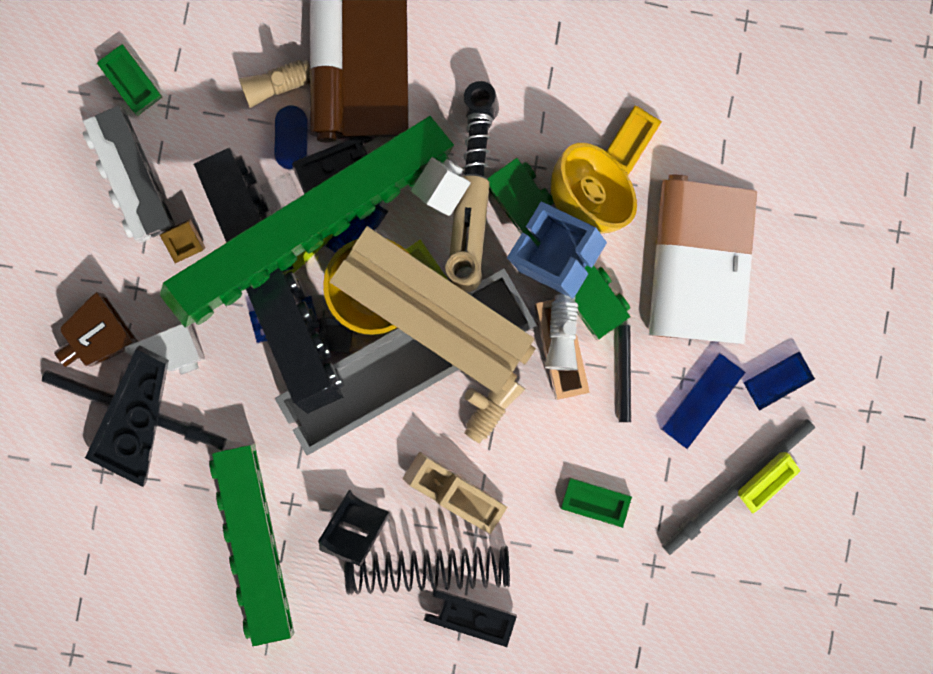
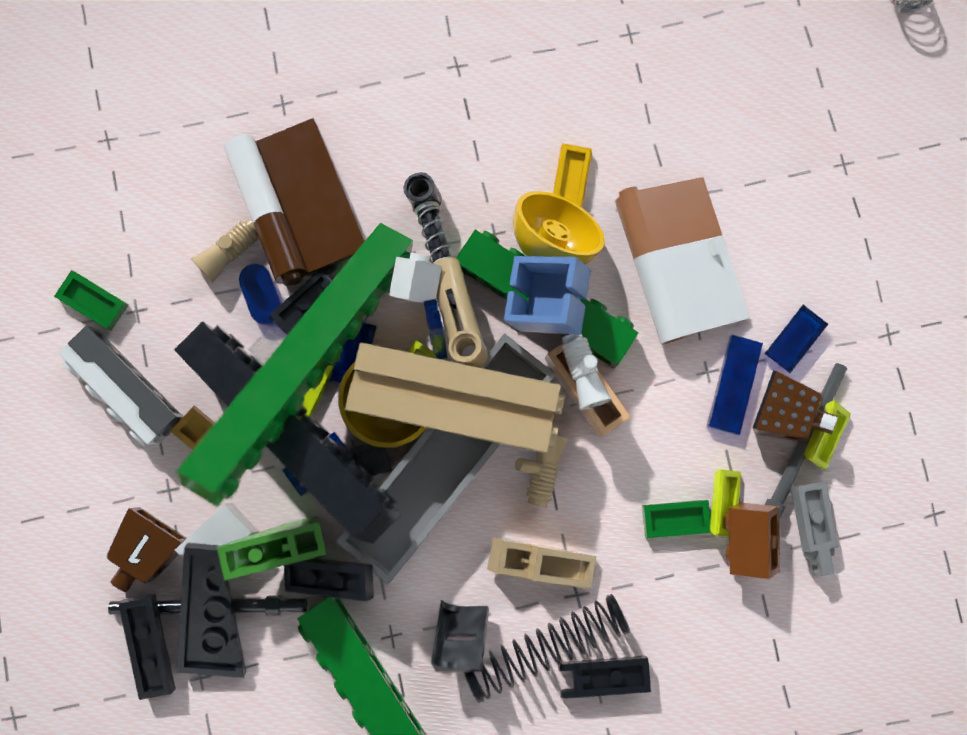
camera: 20 degrees left, 5 degrees down
(66, 424) = (147, 646): none -> black plate
(215, 381) = (272, 548): none -> bright green slope
(254, 428) = (330, 579): none -> black plate
(441, 239) = (435, 329): none -> clear blue tile
(624, 373) = (653, 388): black bar -> none
(647, 506) = (725, 495): none -> neon yellow tile
(657, 549) = (753, 540): none -> dark orange brick
(721, 560) = (815, 526): none -> light grey hinge
(743, 446) = (791, 411): none -> reddish brown torso

